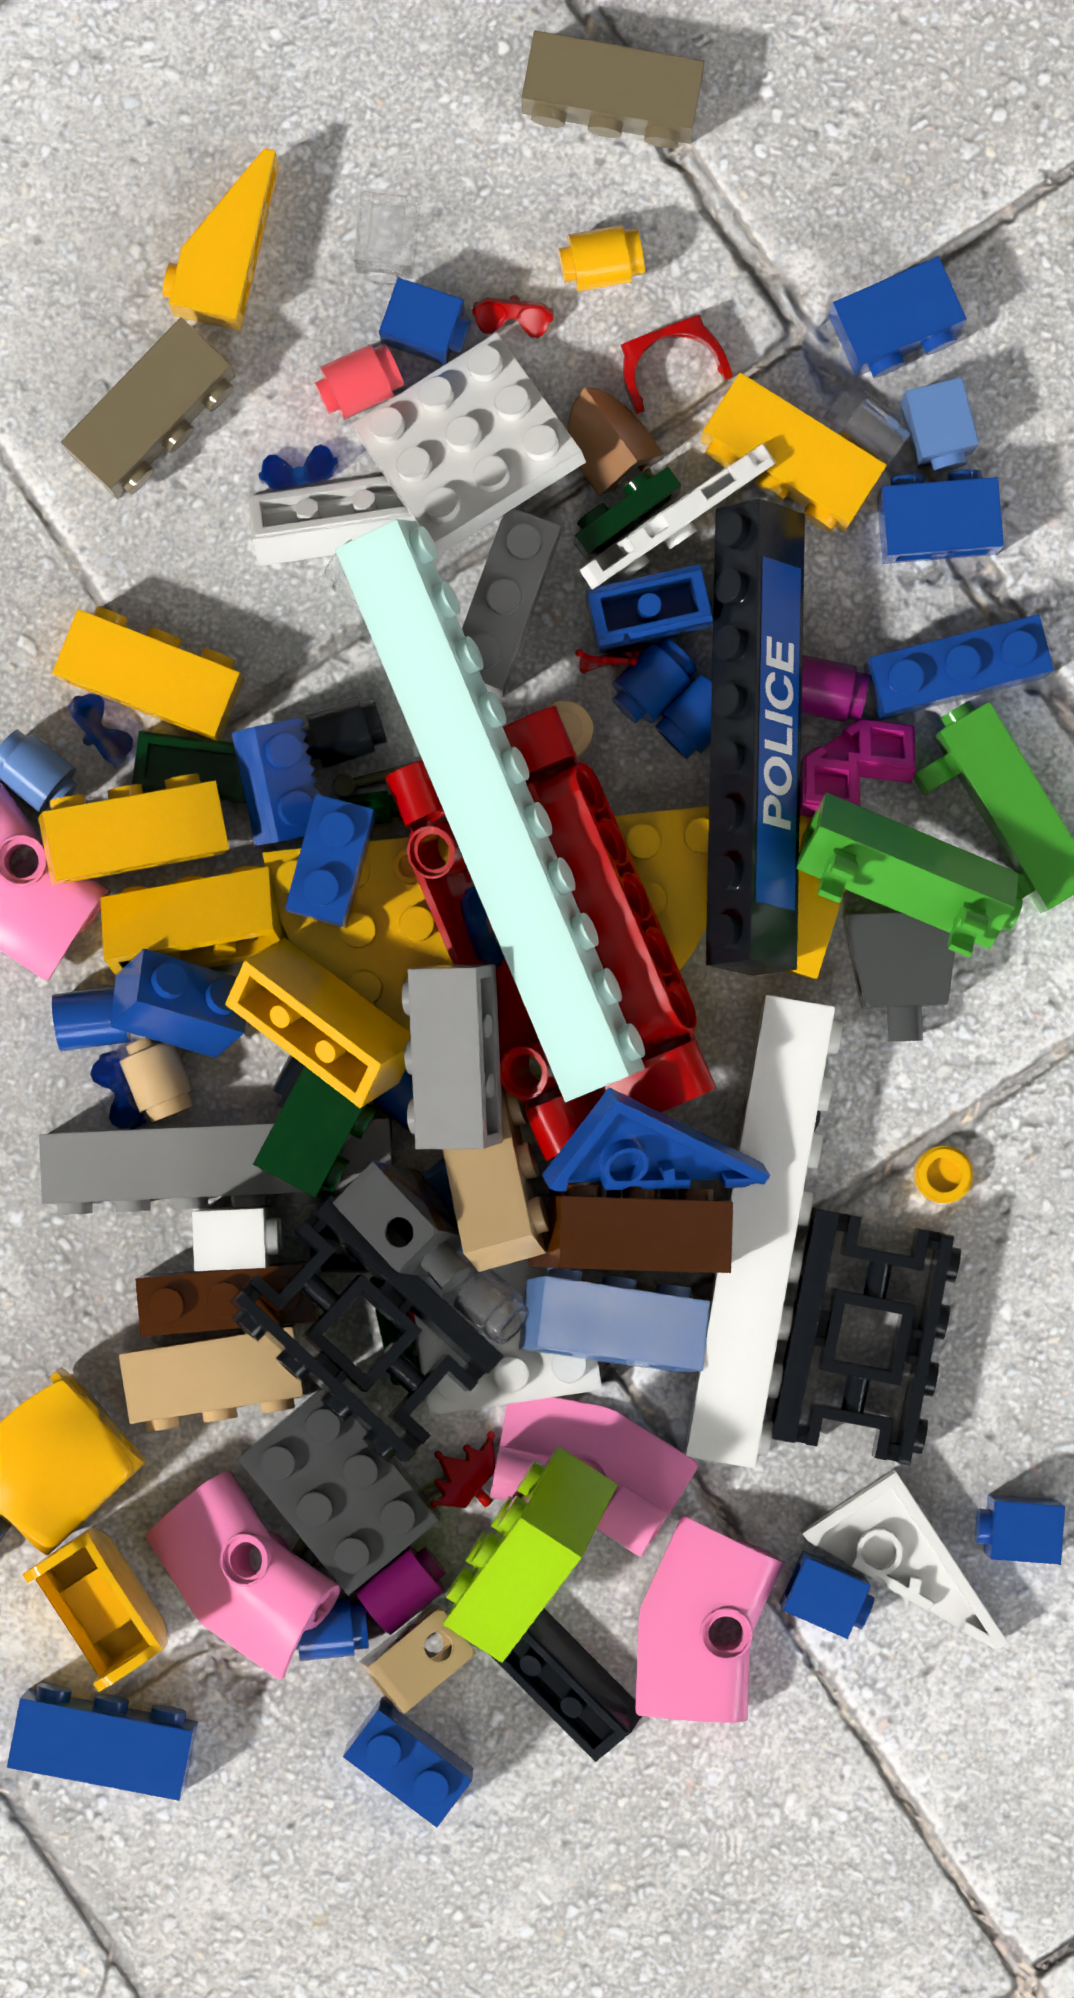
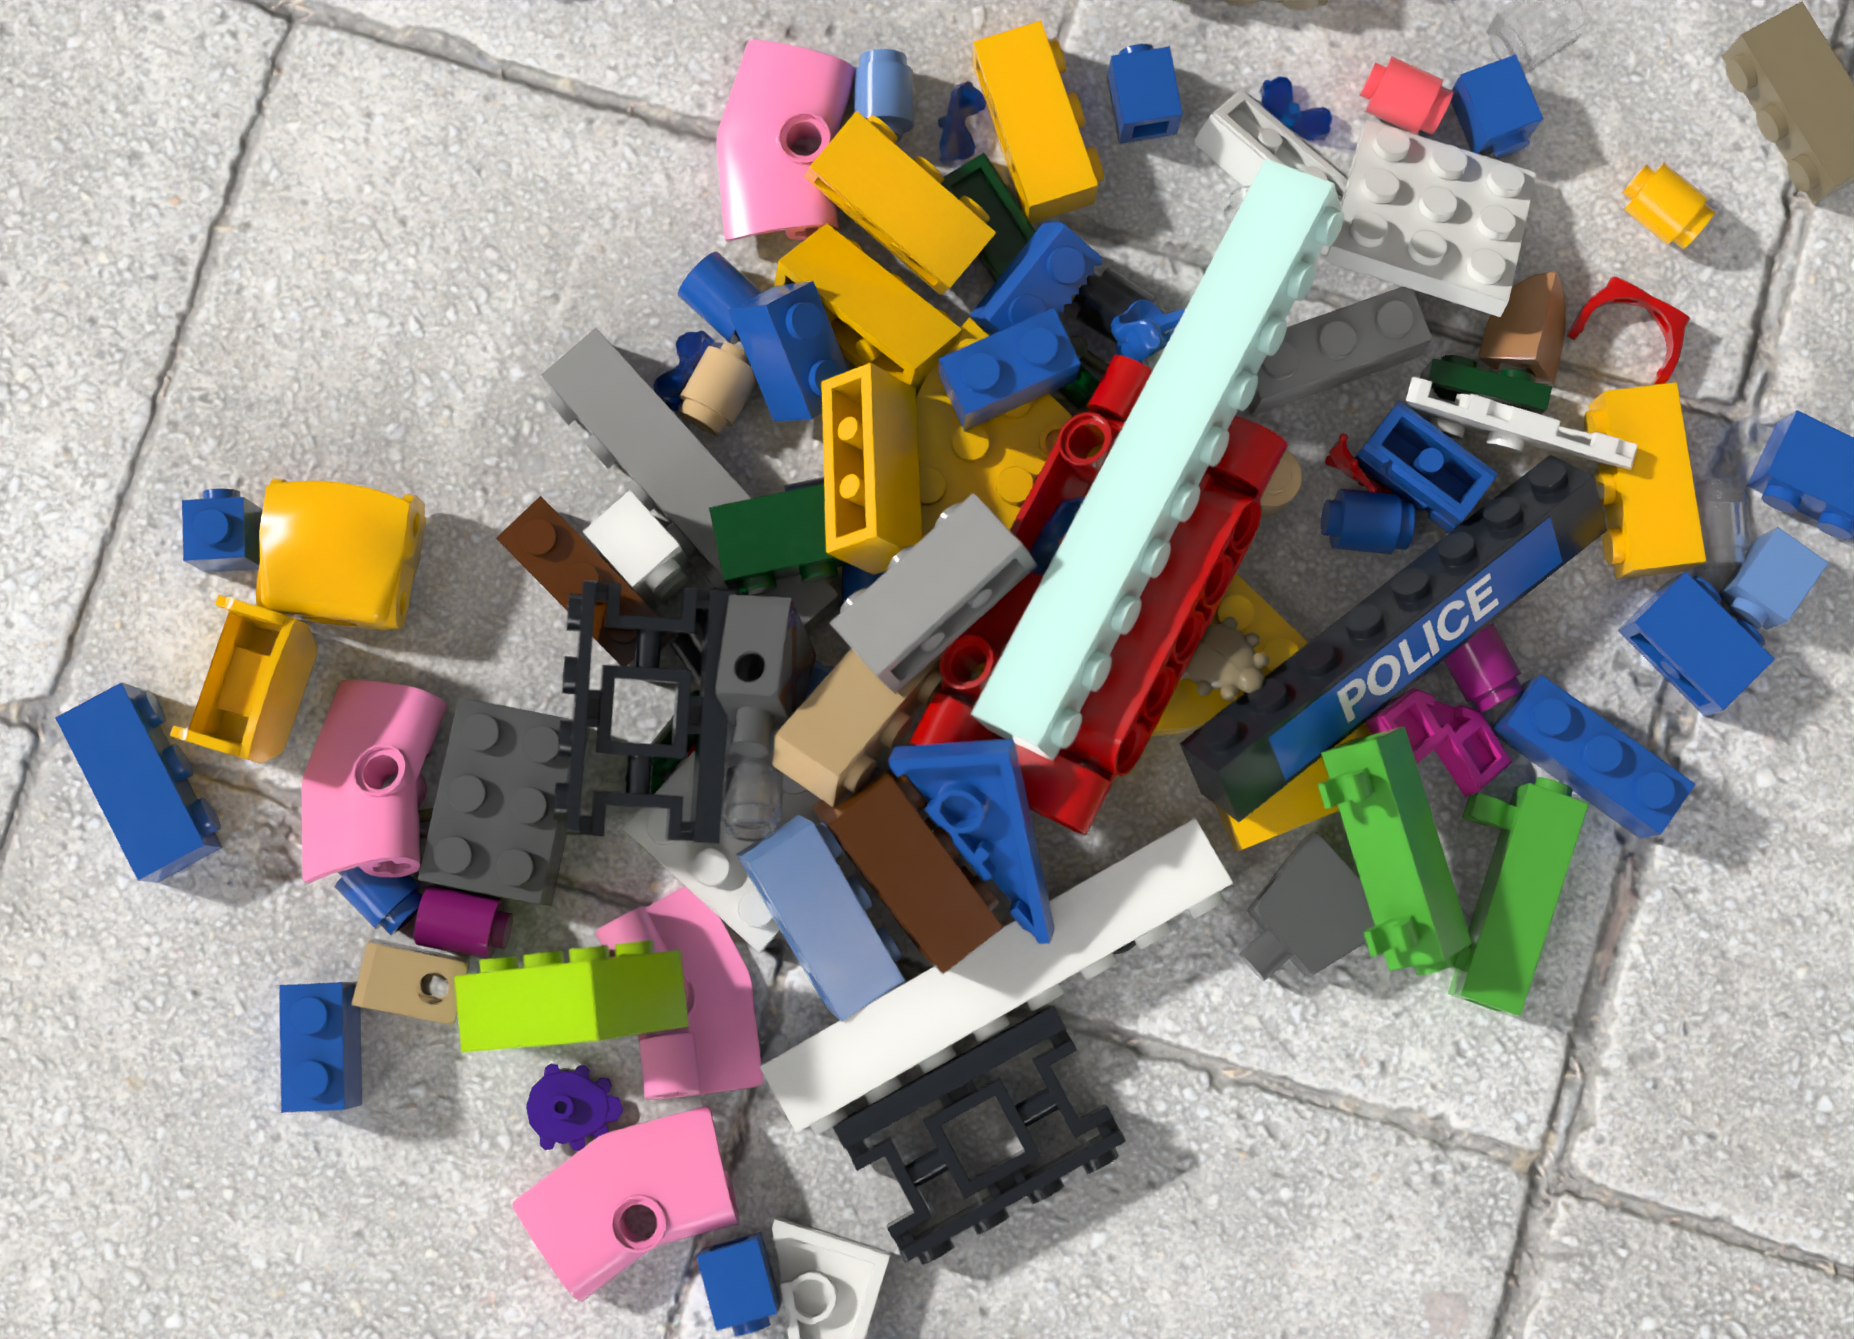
camera: 50 degrees right, 5 degrees down
(193, 574) = (1144, 93): none -> blue brick
(206, 1378) = (507, 622): tan brick -> none
(379, 741) = (1142, 330): none -> blue piece
(466, 1476) = (596, 900): red piece -> none
(493, 313) = (1572, 189): red piece -> none
(571, 1686) = (493, 1128): black slope -> none
(600, 1616) = (571, 1107): none -> dark purple piece
(674, 880) = (1226, 661): none -> dark tan piece
(688, 718) = (1360, 573): blue brick -> none
(943, 1174) = (1167, 1091): yellow tile -> none

